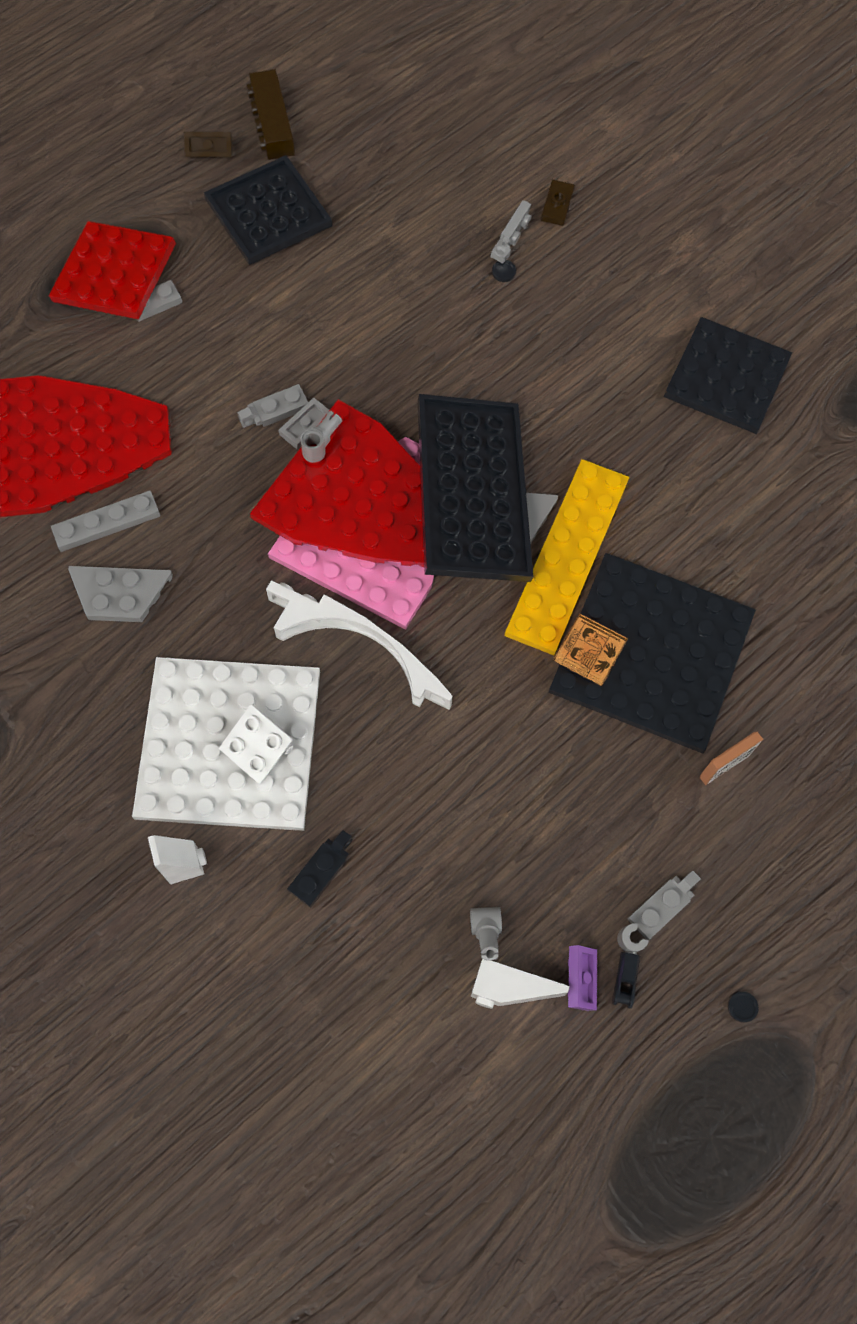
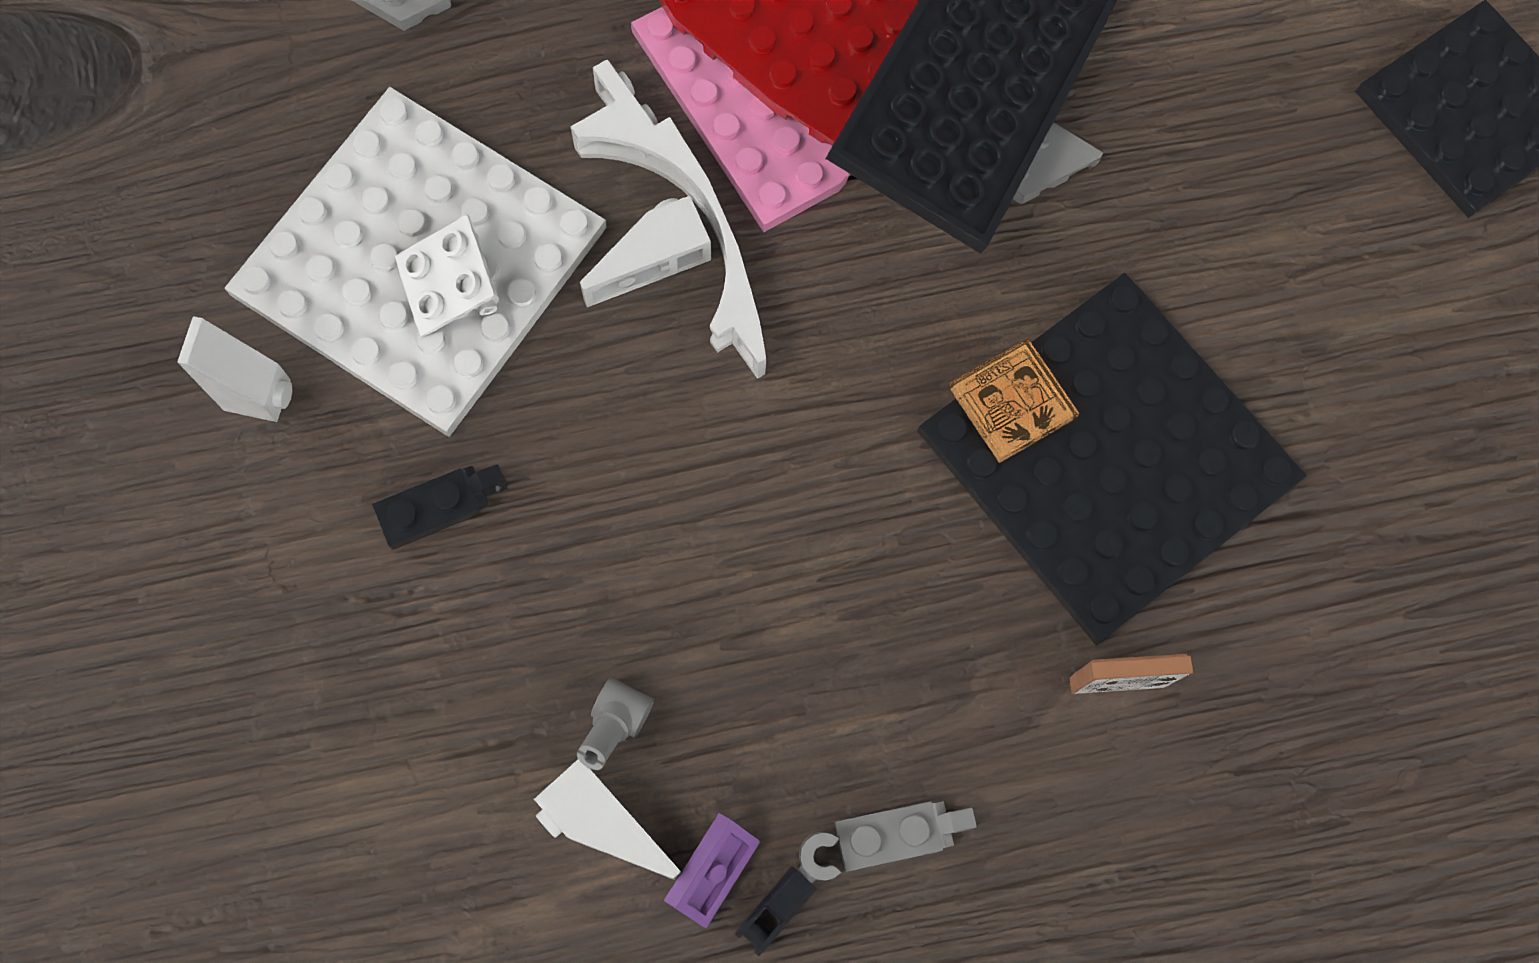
camera: 25 degrees right, 5 degrees up
(358, 664) = (656, 247): none -> white slope
(567, 557) = (1064, 249): yellow plate -> none

